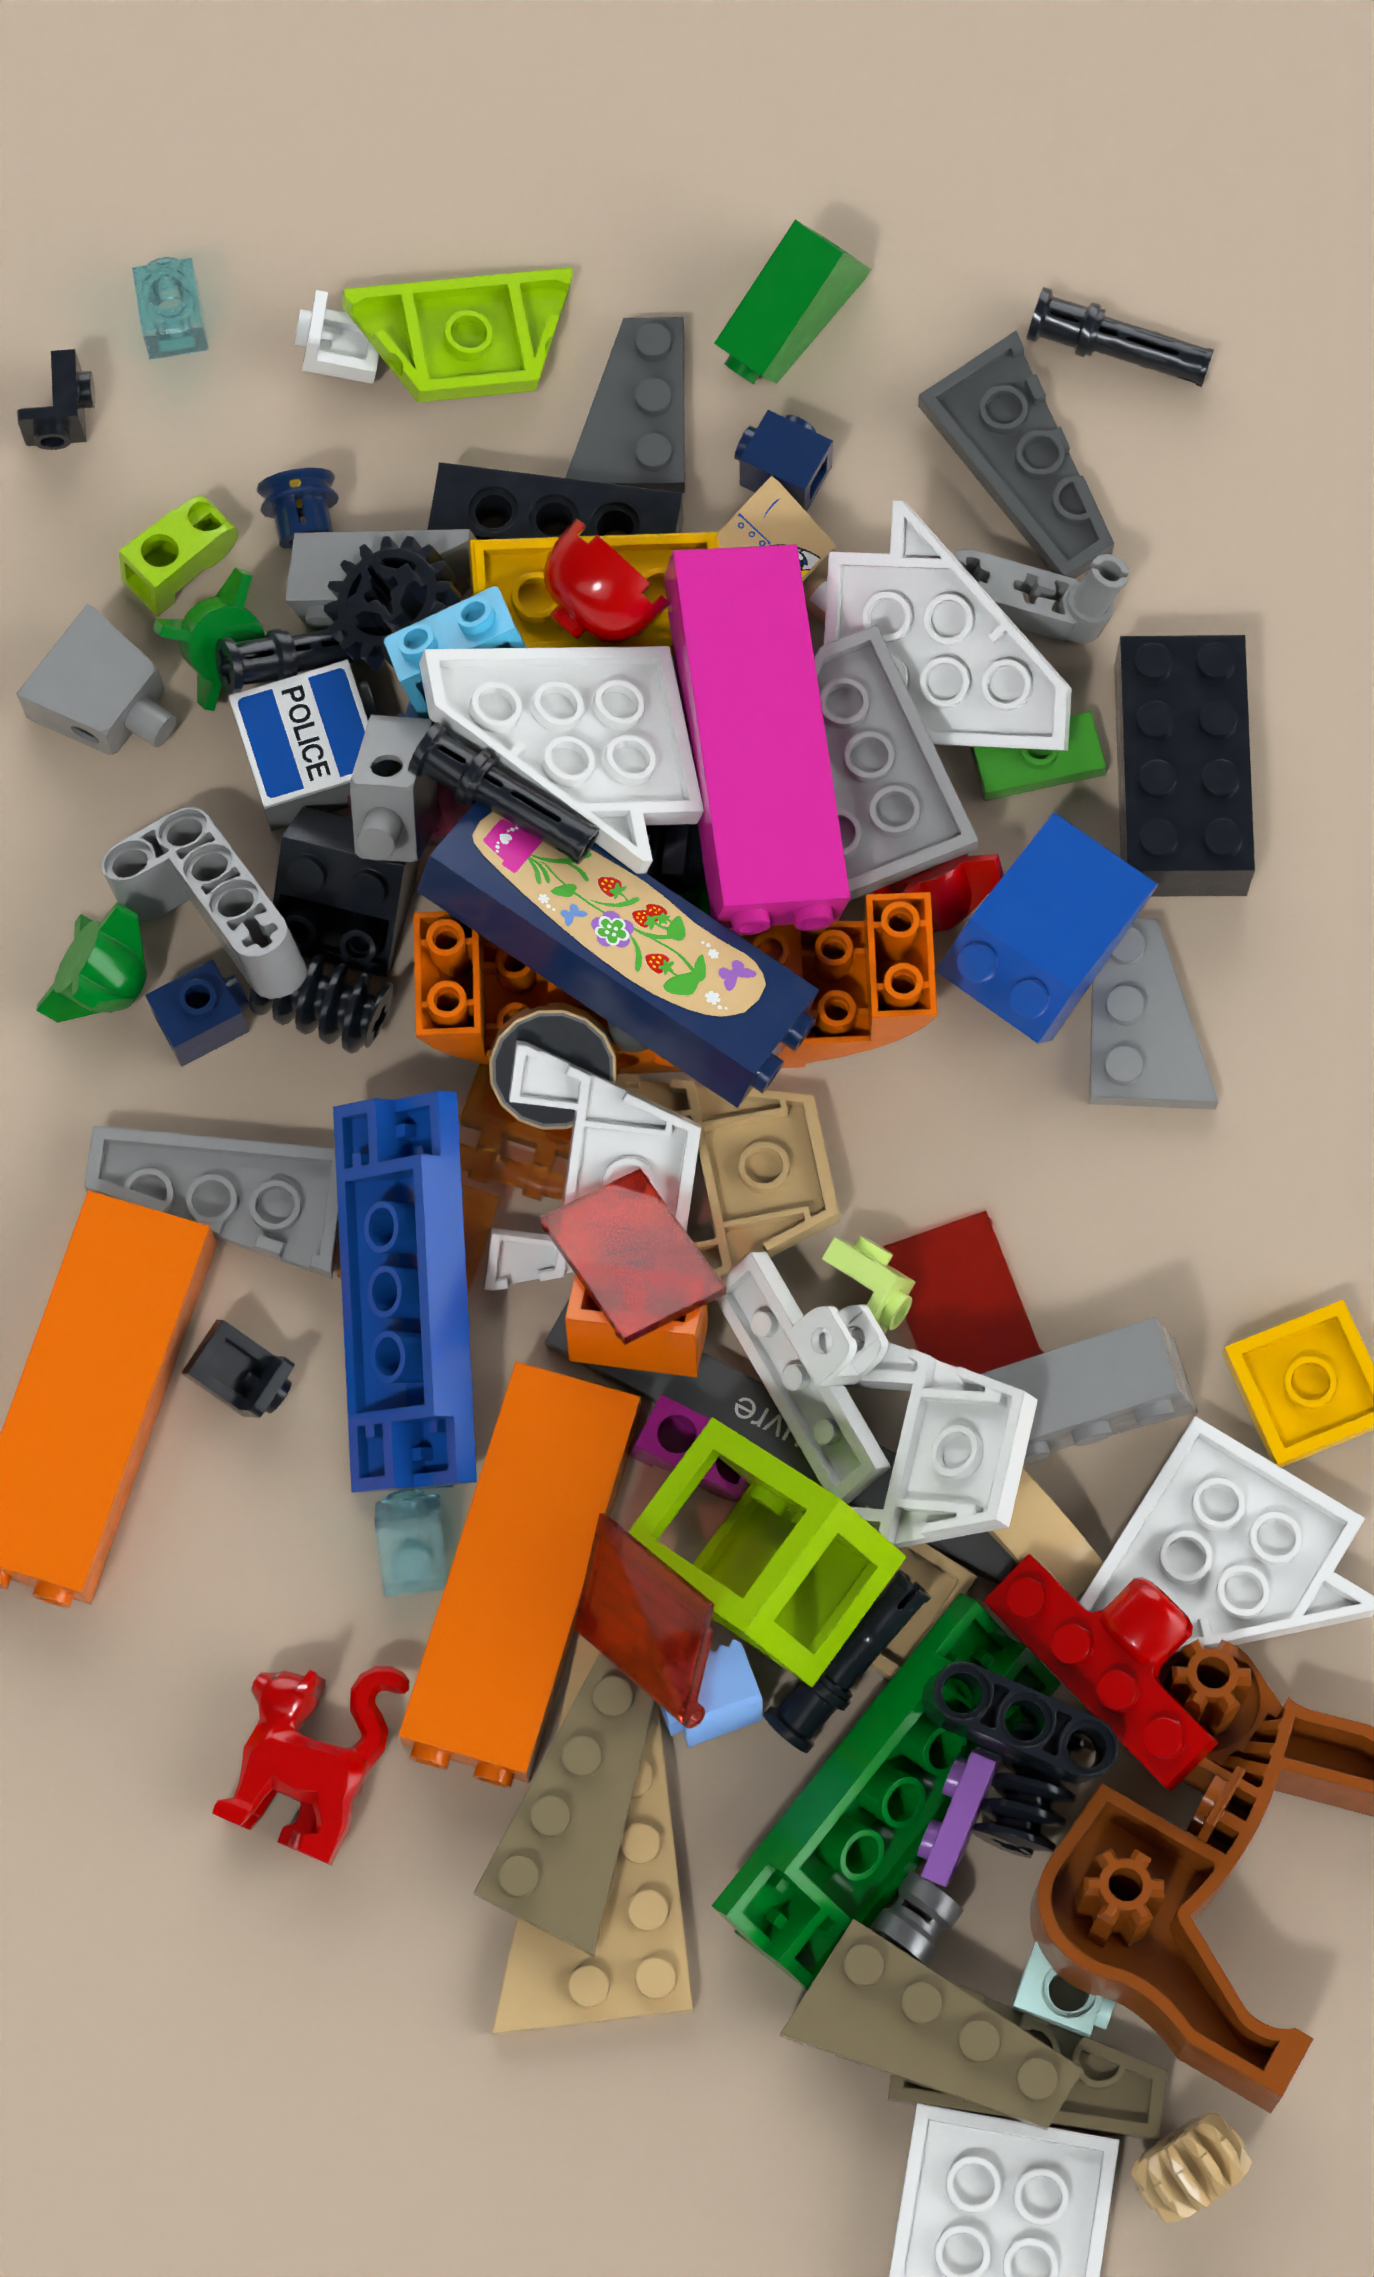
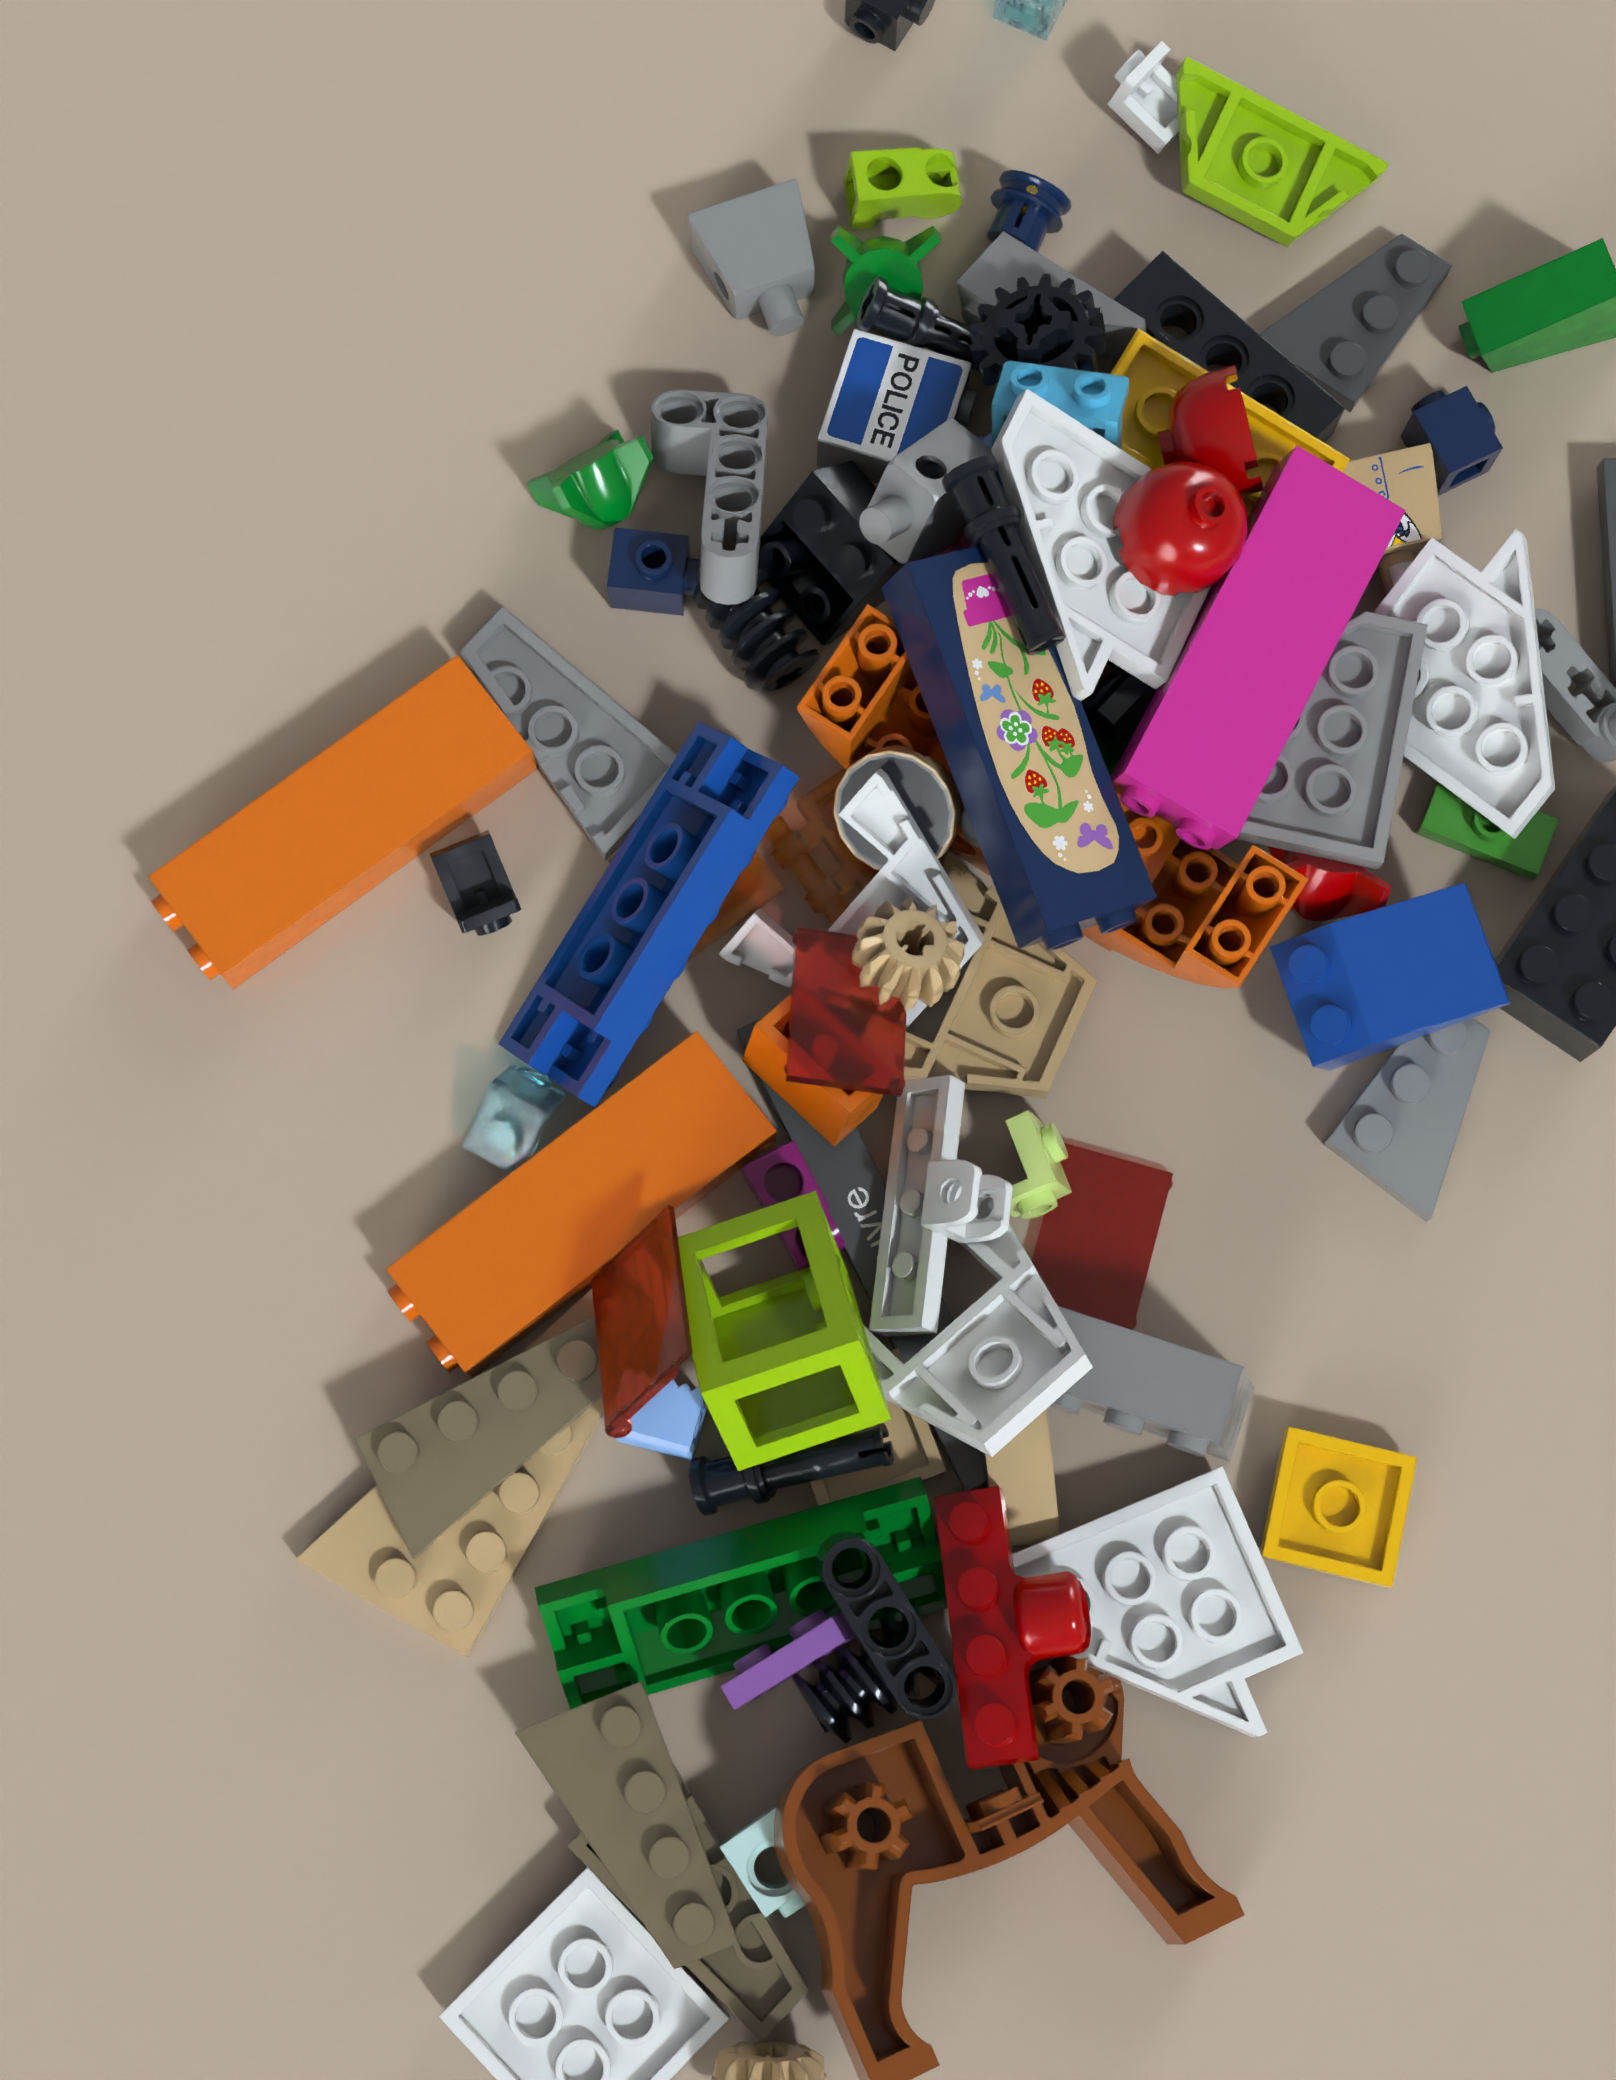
camera: 30 degrees right, 5 degrees up
(307, 1770) = (298, 1240): red animal -> none
(627, 678) = (1181, 527): none -> red cylinder
(649, 1175) = (908, 954): none -> tan gear
(906, 1928) = (681, 1719): flat silver wheel -> none

